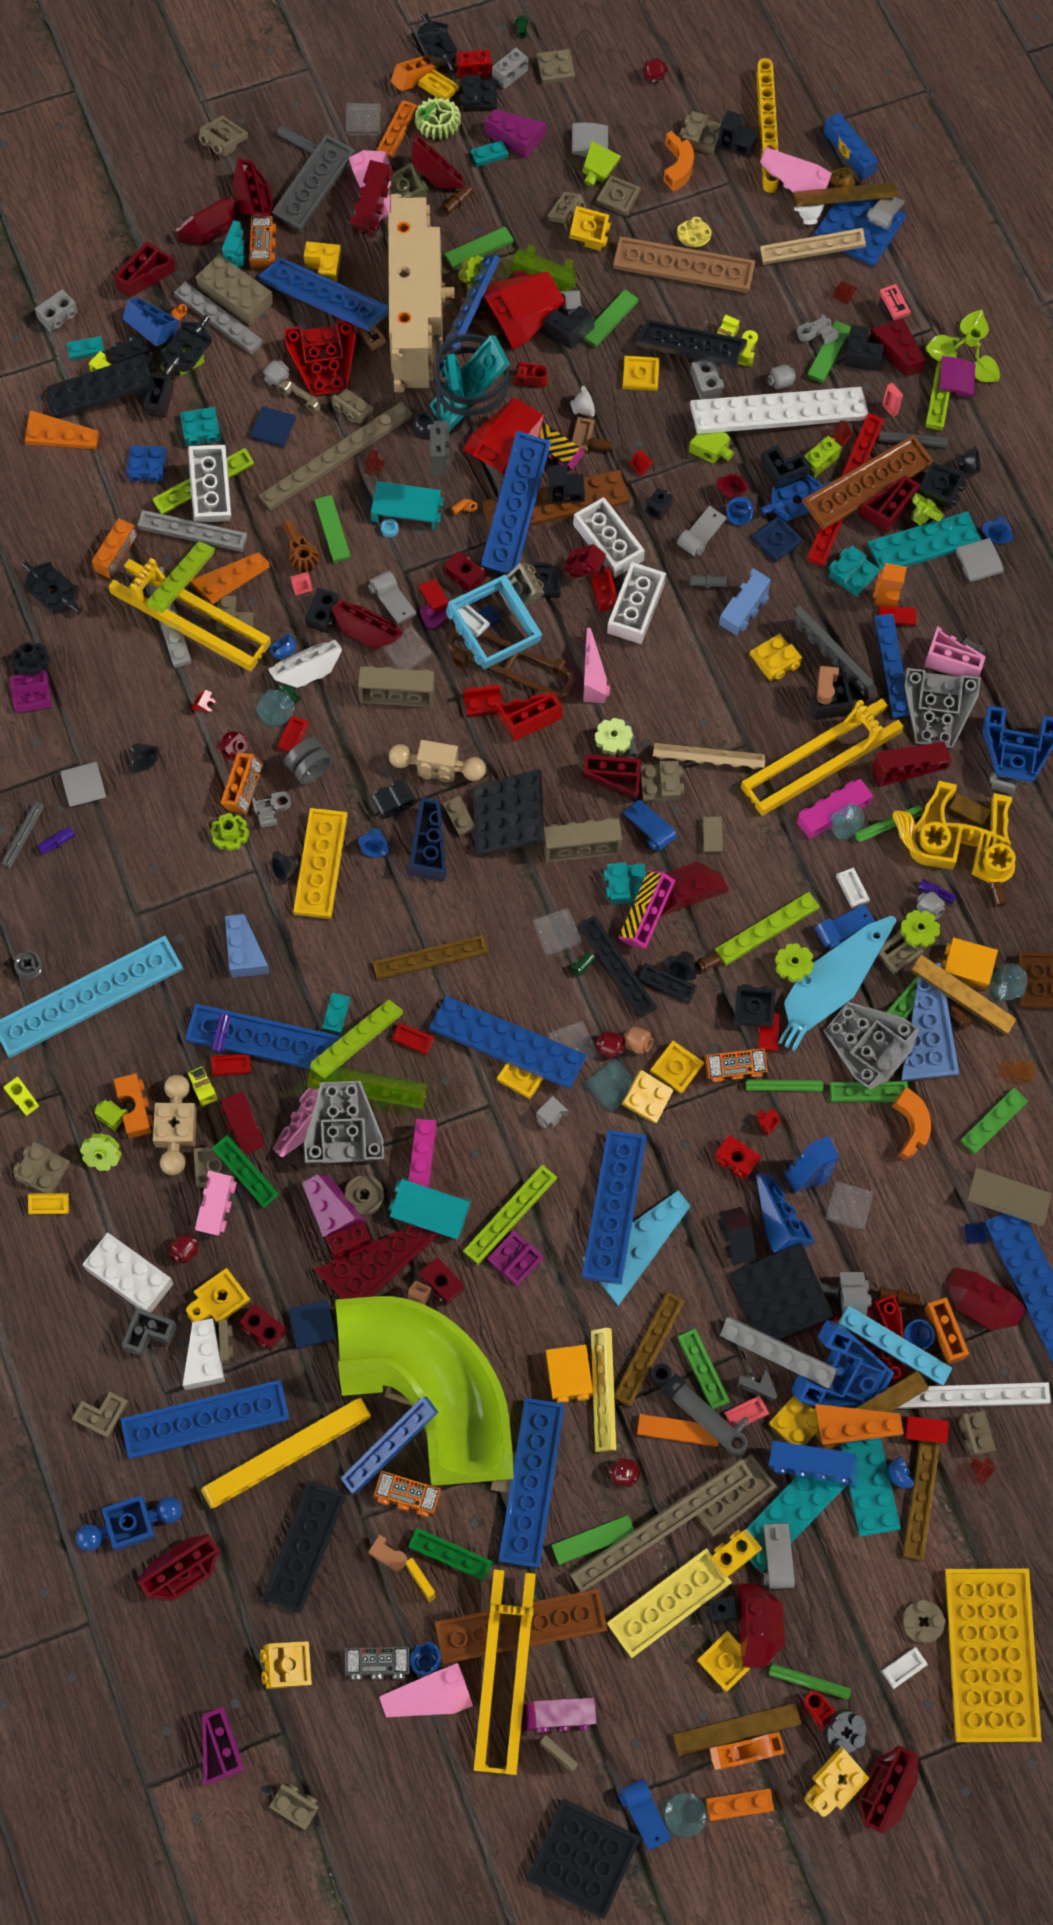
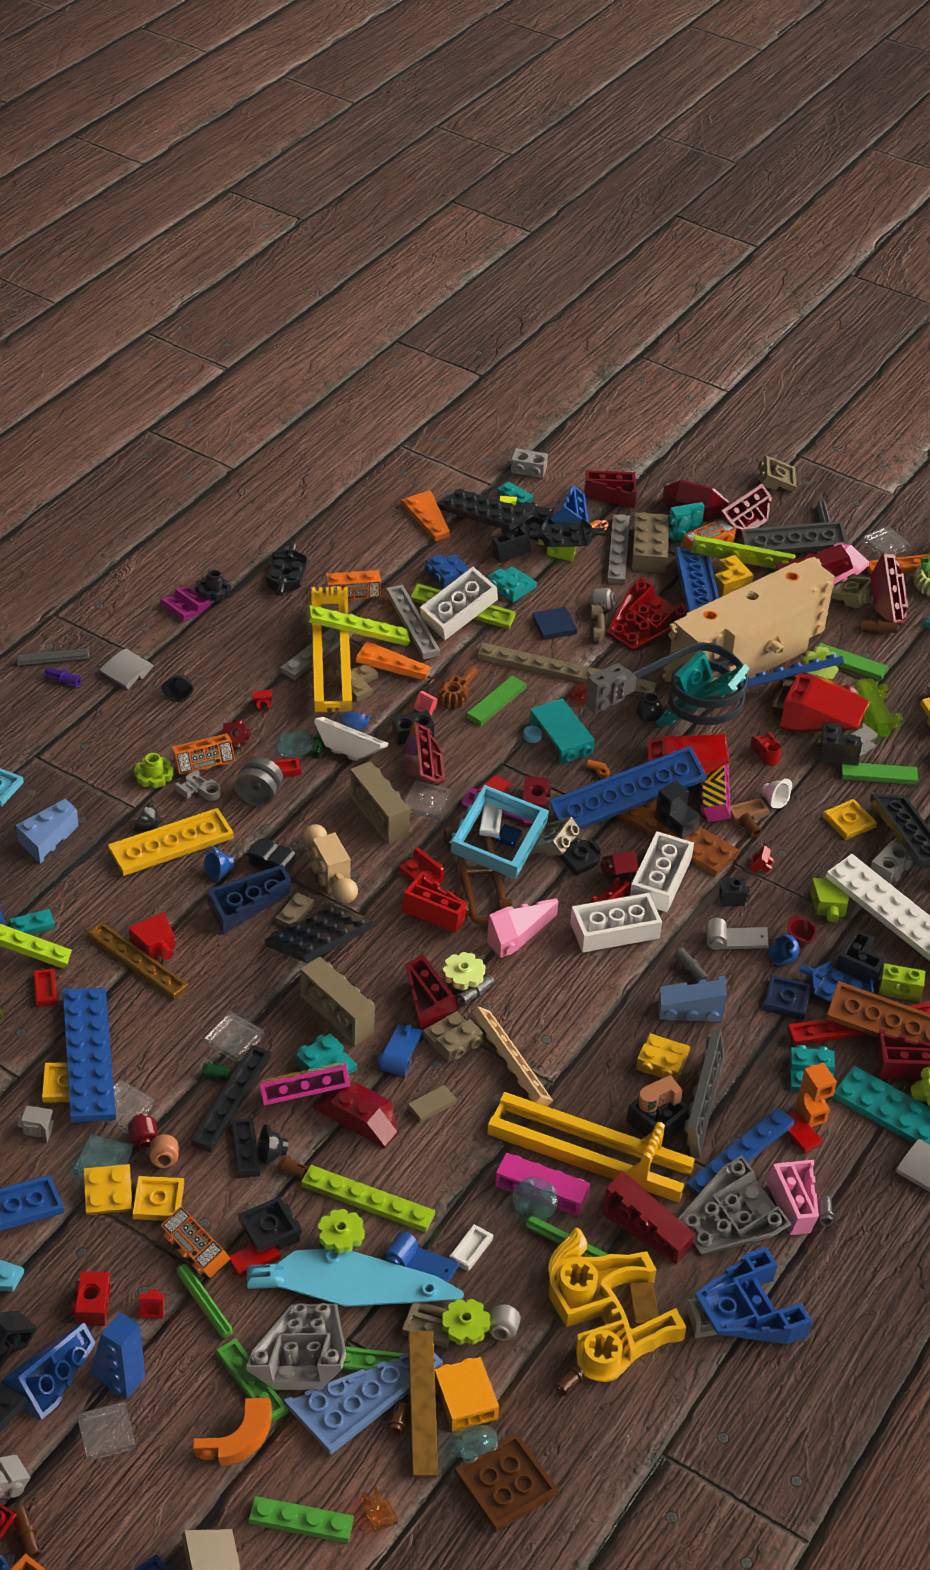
camera: 55 degrees right, 25 degrees down
(304, 233) = (744, 553): none -> lime plate
(352, 406) = (620, 654): dark tan bracket -> none
(391, 597) = (471, 760): light grey door -> none
(420, 932) = (154, 937): none -> red torso
(927, 887) = (527, 1321): dark purple axle -> none

